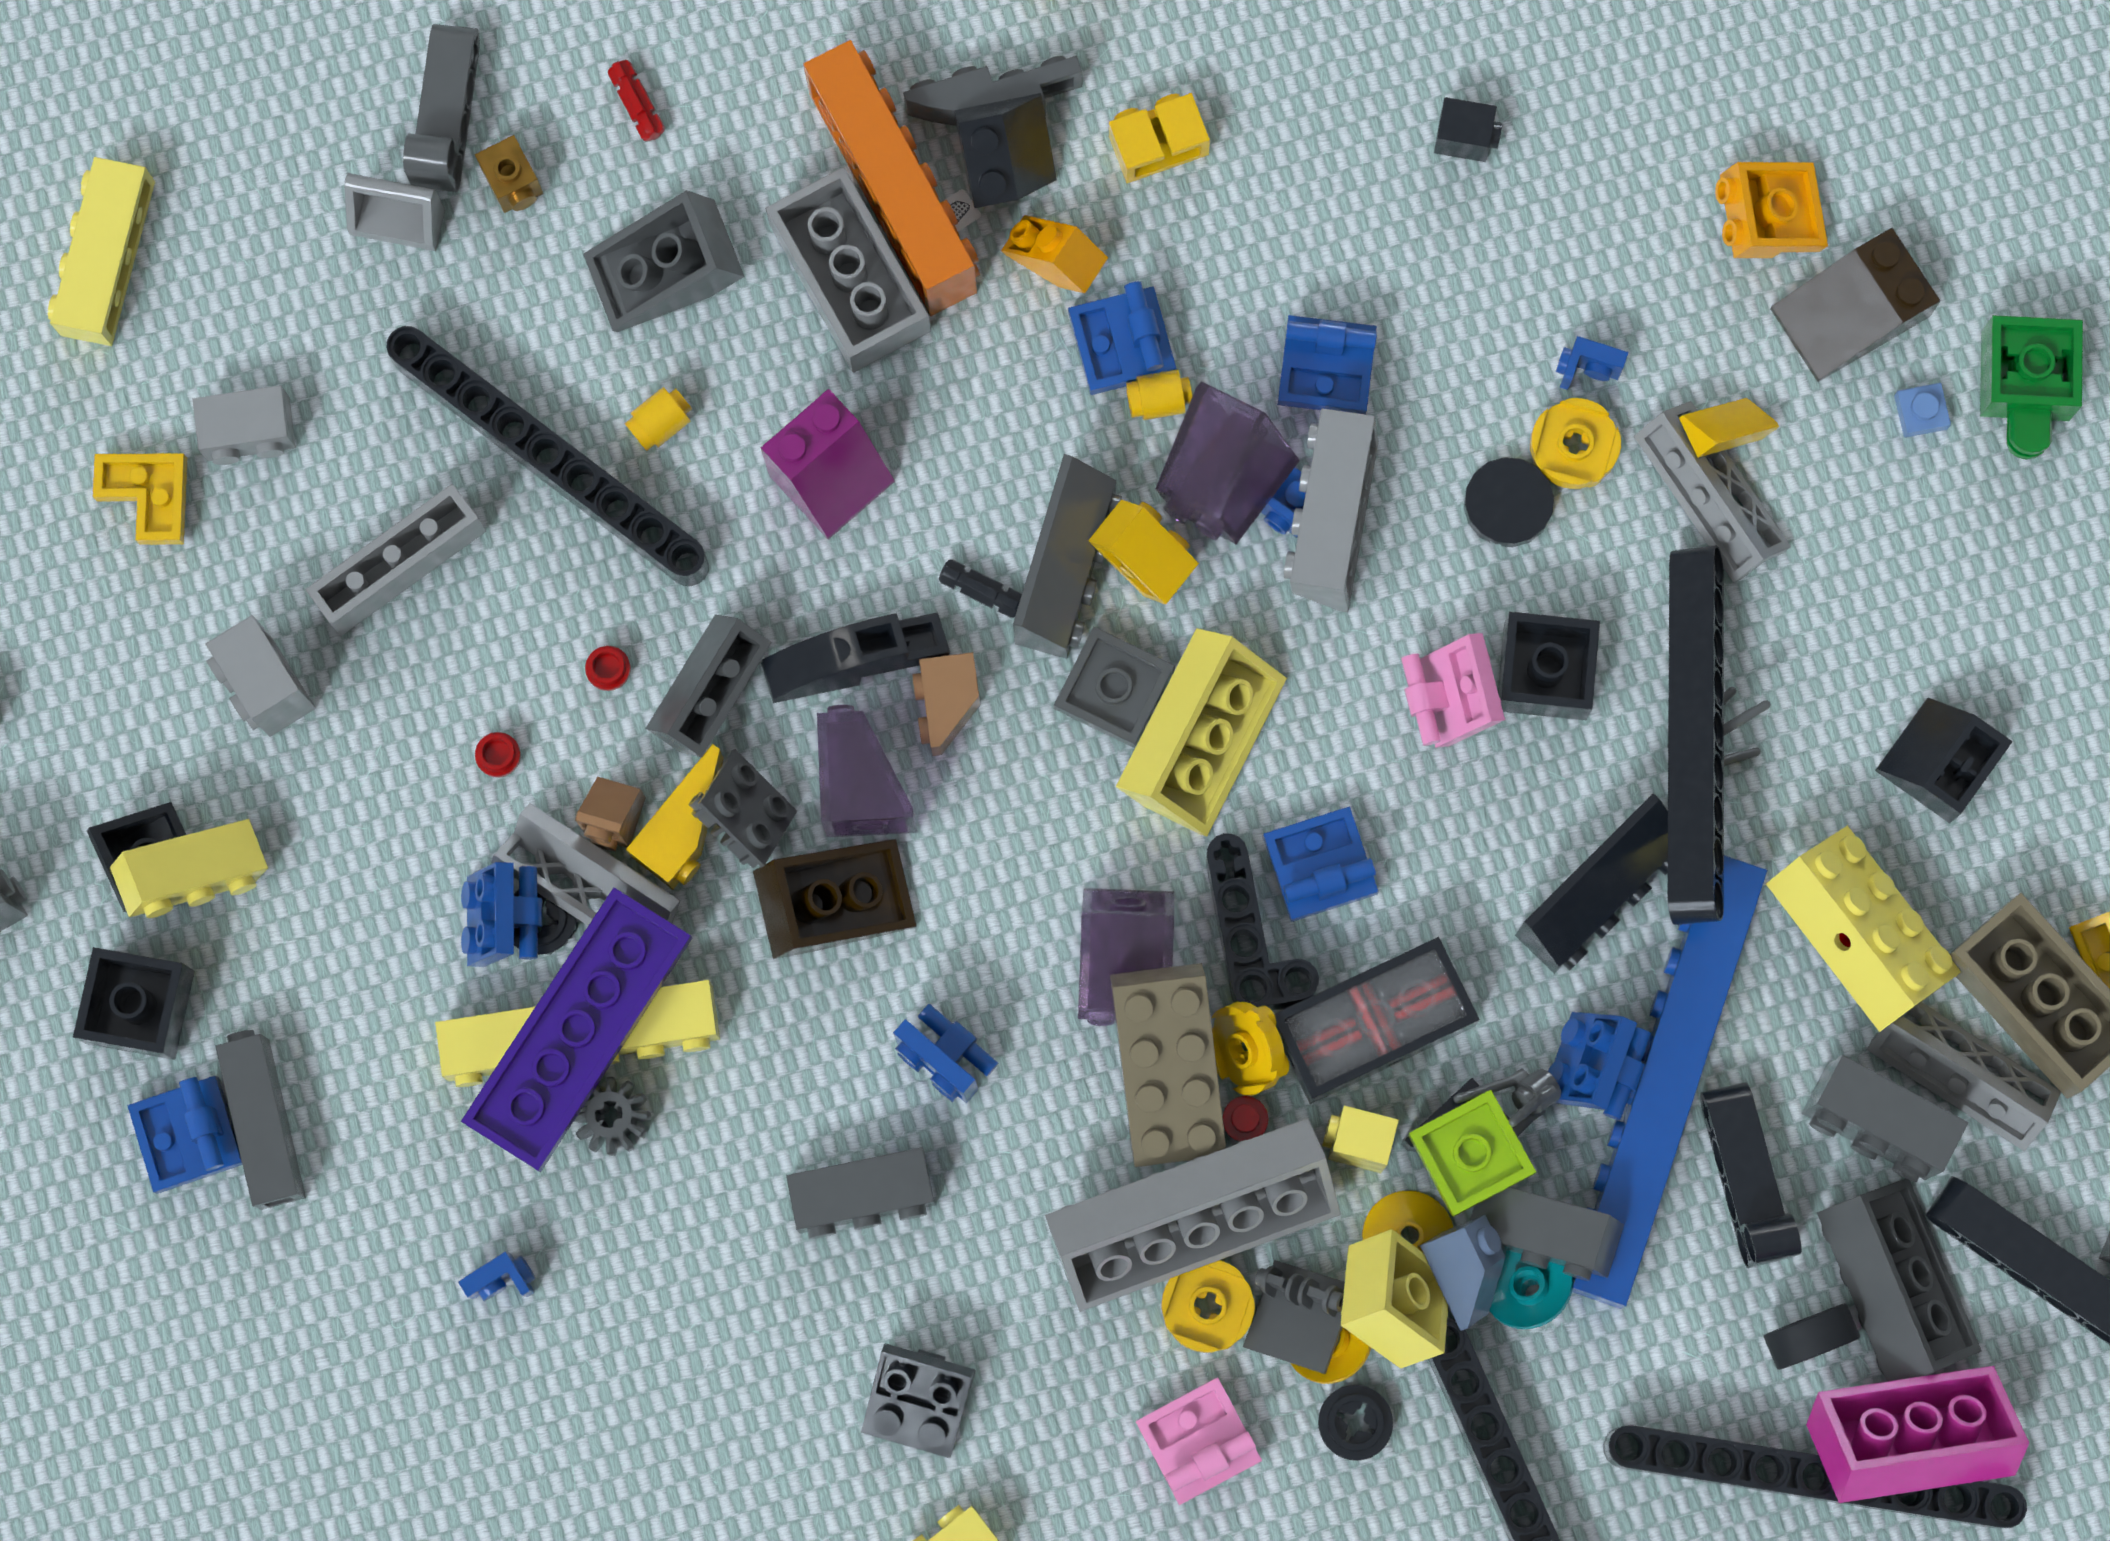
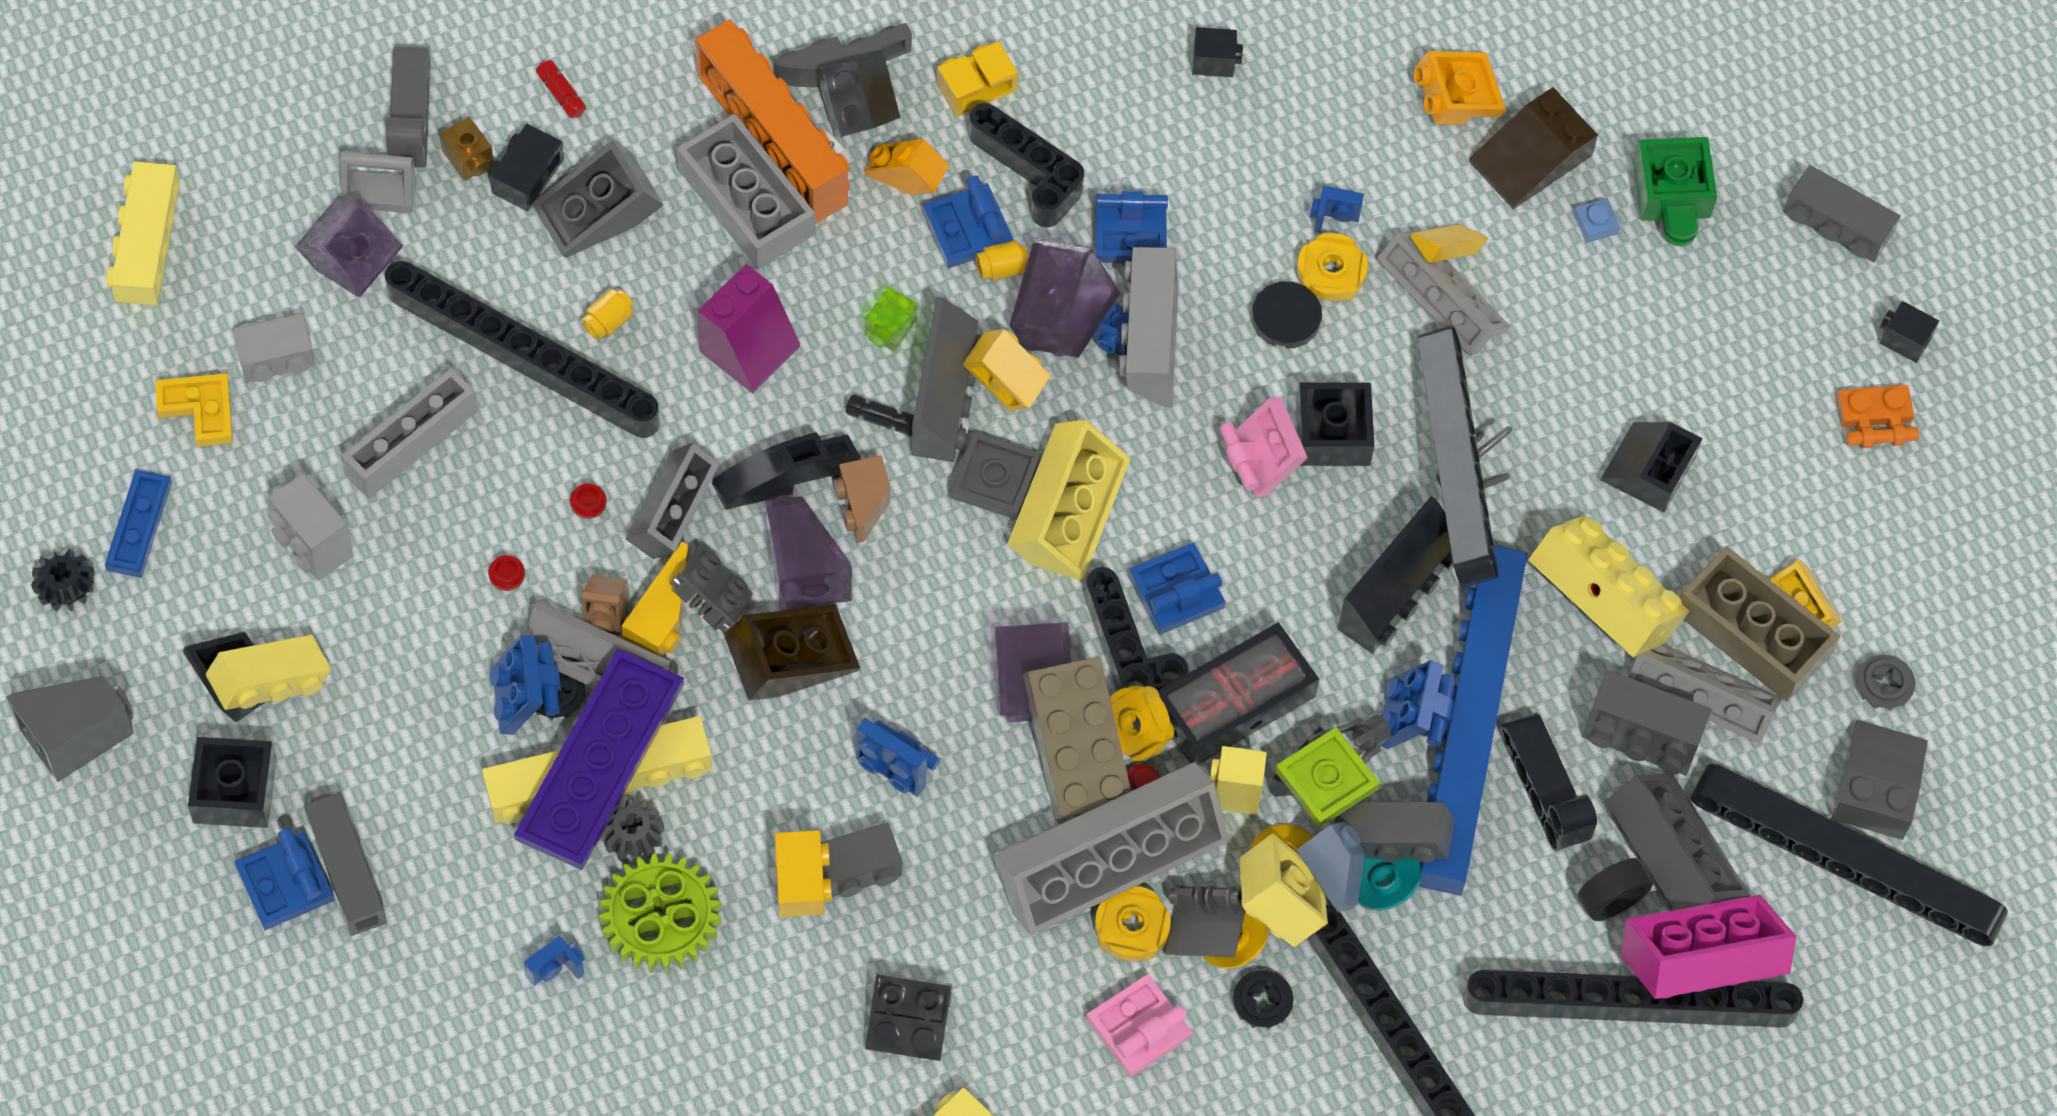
camera: 15 degrees left, 15 degrees down
(59, 640) = (138, 523): none -> blue tile
(350, 292) = (349, 244): none -> clear purple slope
(579, 206) = (526, 167): none -> black brick
(624, 1187) = (673, 941): none -> lime gear
(804, 1211) = (800, 873): none -> yellow brick
(1008, 462) = (890, 319): none -> clear neon green brick
(1201, 253) = (991, 131): none -> black beam

